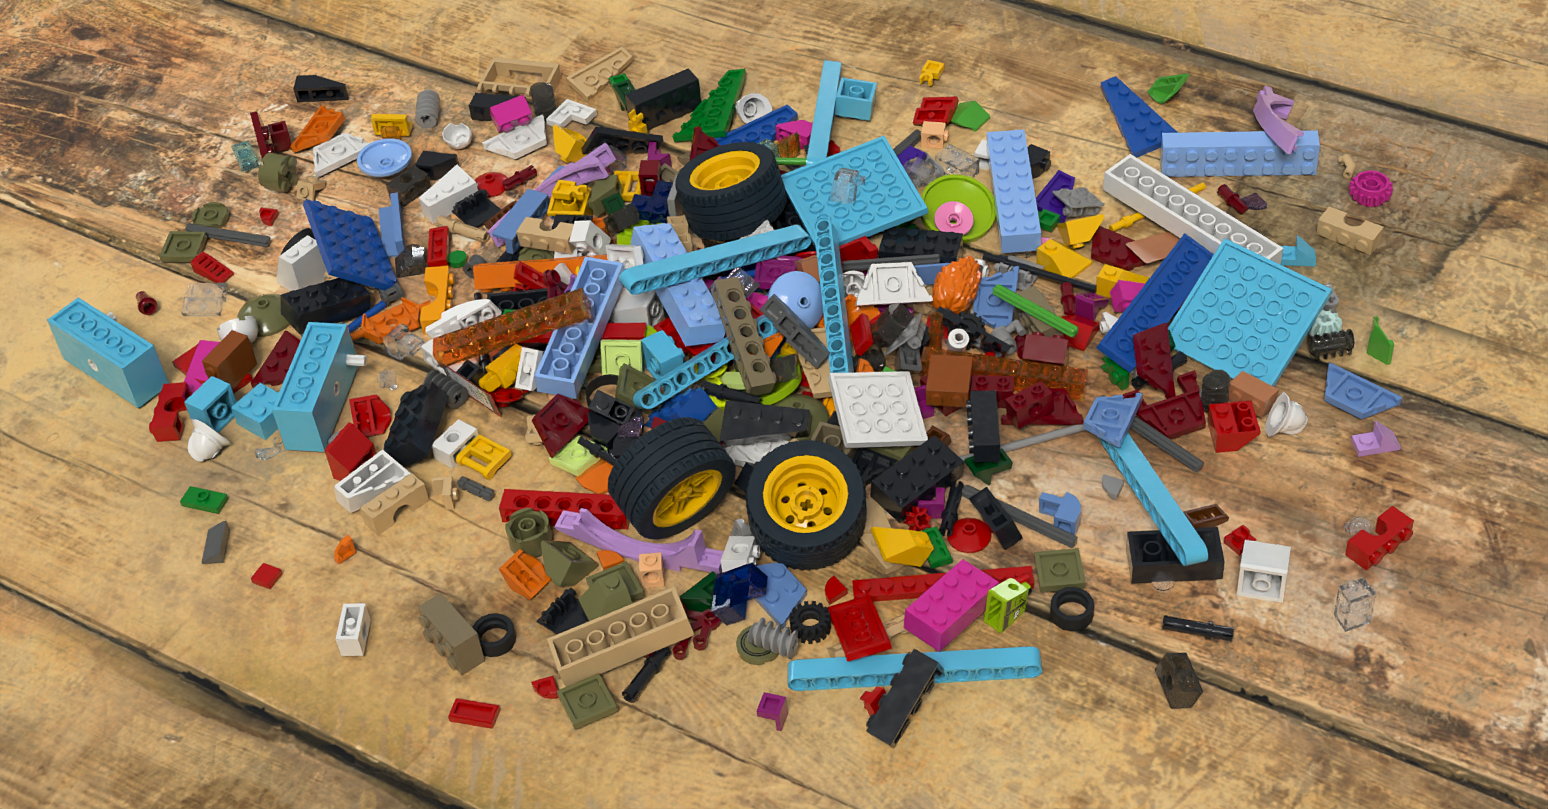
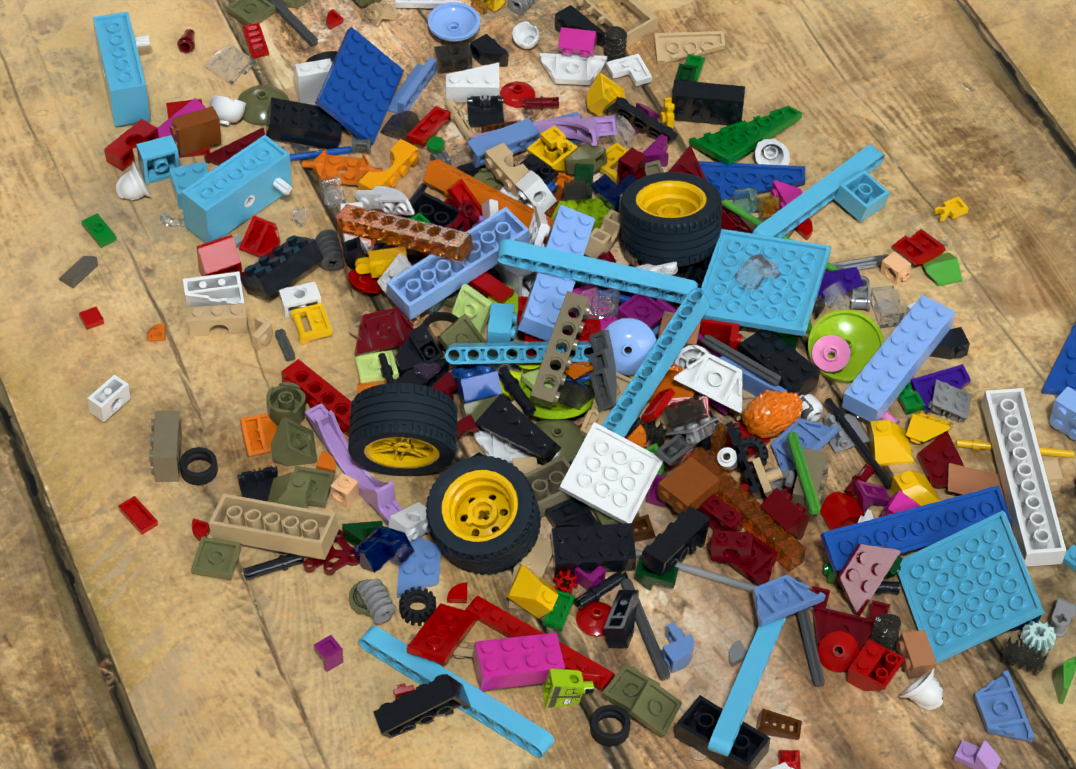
camera: 30 degrees right, 5 degrees up
(1005, 335) = (767, 477): none -> tan tile
(1096, 569) = (655, 708): none -> olive plate
(1181, 433) = (830, 659): none -> red dish

